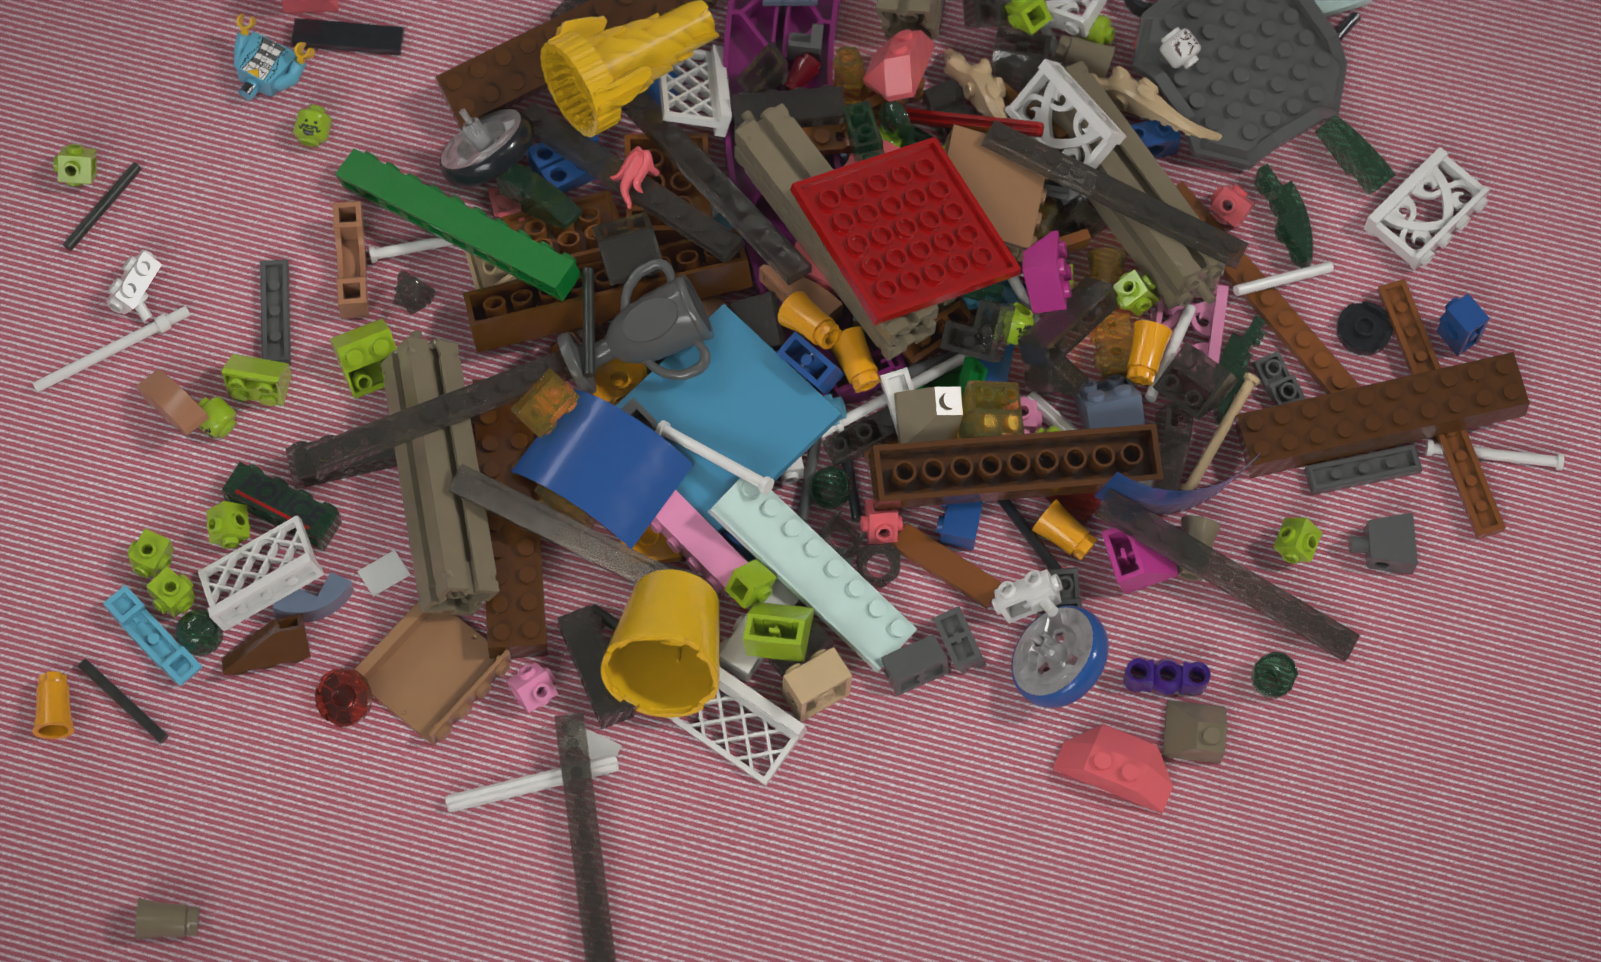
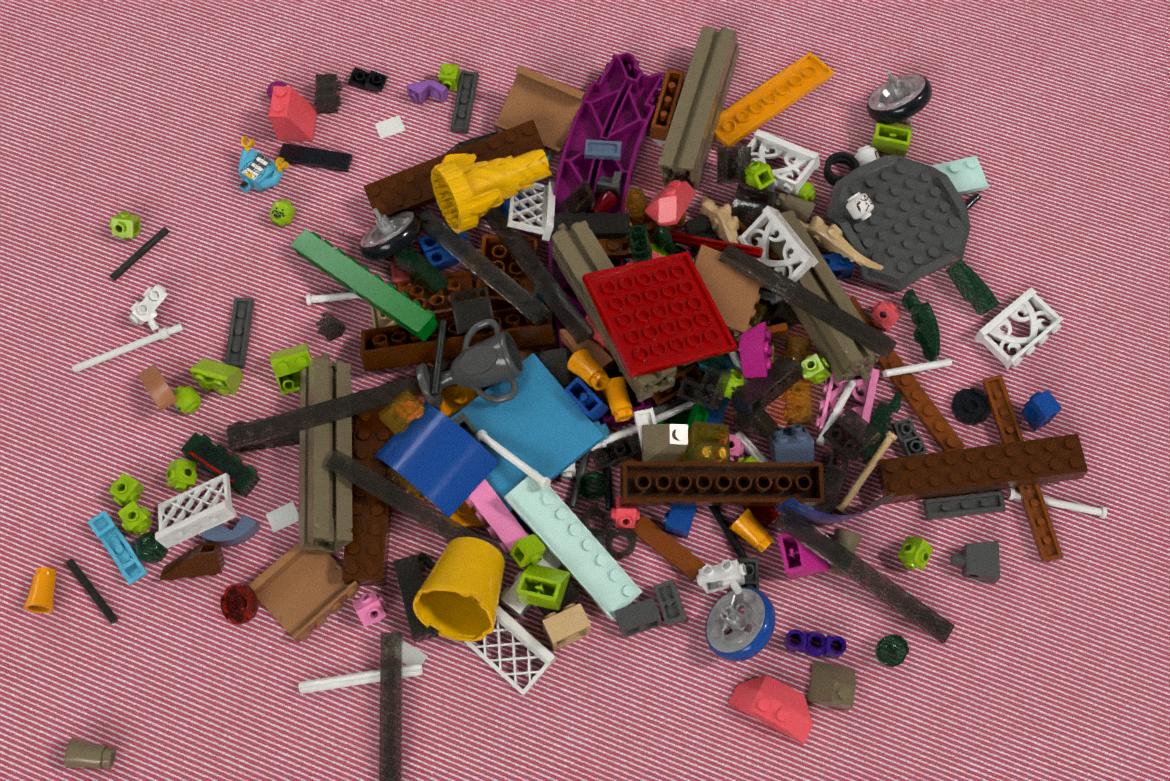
camera: 10 degrees right, 0 degrees up
(351, 260) = (291, 318): nougat arch -> none
(633, 172) = (483, 258): coral piece -> none
(1147, 351) = (820, 410): light orange plant -> none

